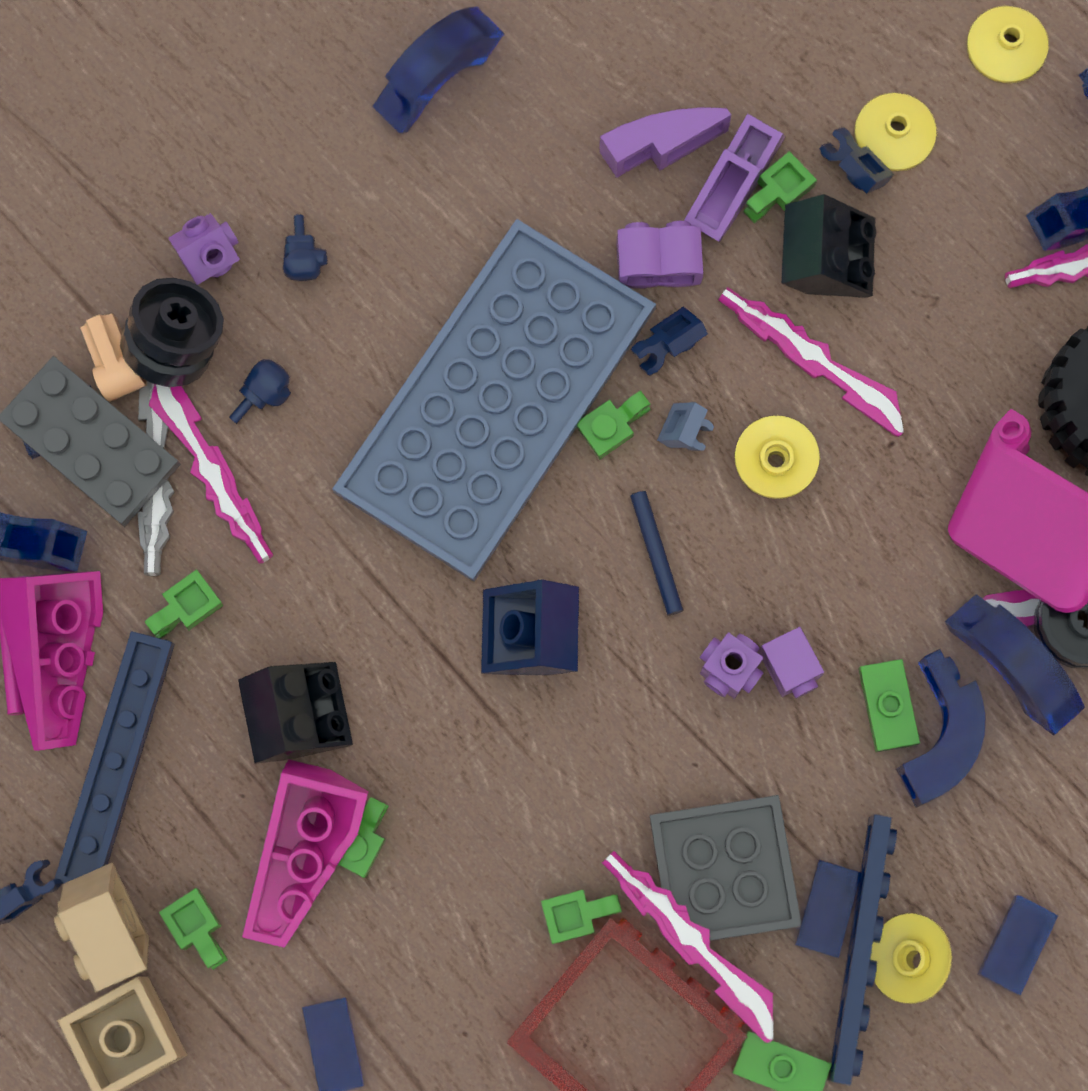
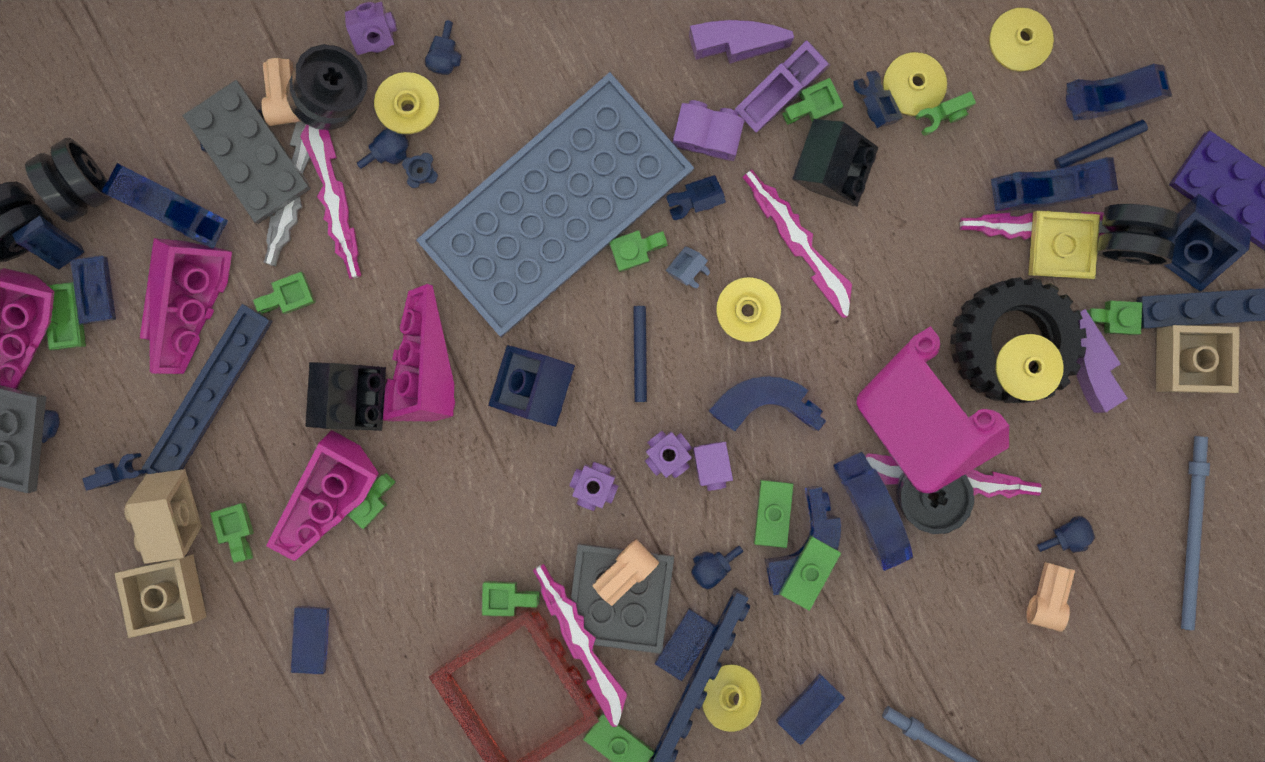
camera: 15 degrees right, 10 degrees up
(274, 310) = (402, 90): none -> light yellow dish
(313, 392) = (411, 166): none -> dark blue plate
(387, 657) = (423, 374): none -> dark pink wedge
(643, 749) = (600, 474): none -> medium lavender brick
(727, 822) = (630, 567): none -> light nougat piece
(831, 798) = (711, 569): none -> dark blue piece
(833, 551) = (748, 395): none -> clear blue arch
(951, 147) = (952, 109): none -> bright green plate
(960, 760) = (810, 573): none -> bright green plate

